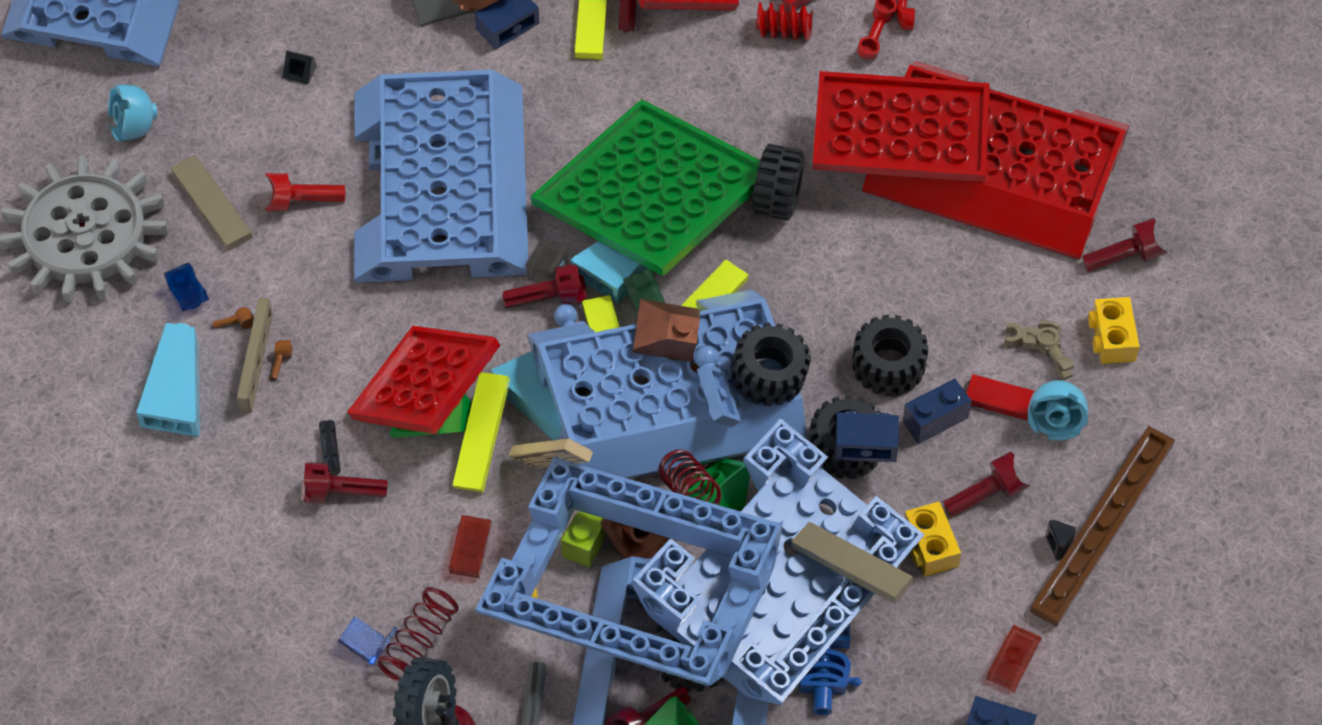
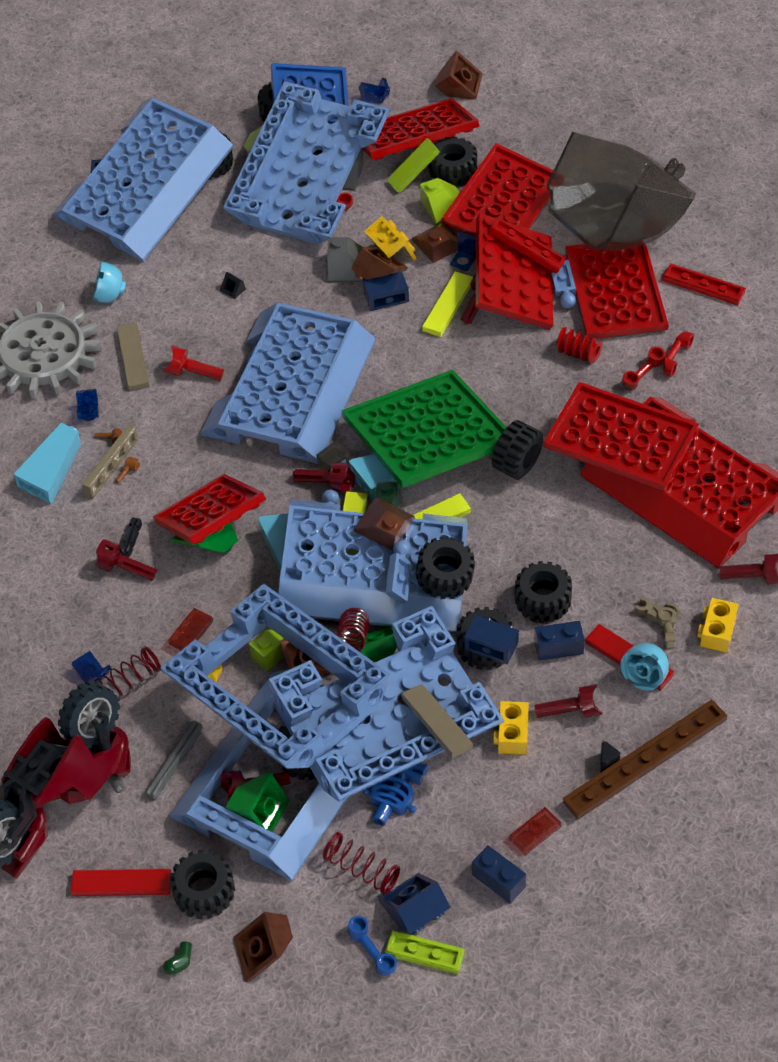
camera: 25 degrees right, 5 degrees down
(481, 432) = (233, 556): neon yellow tile -> none
(541, 453) = (268, 578): tan tile -> none

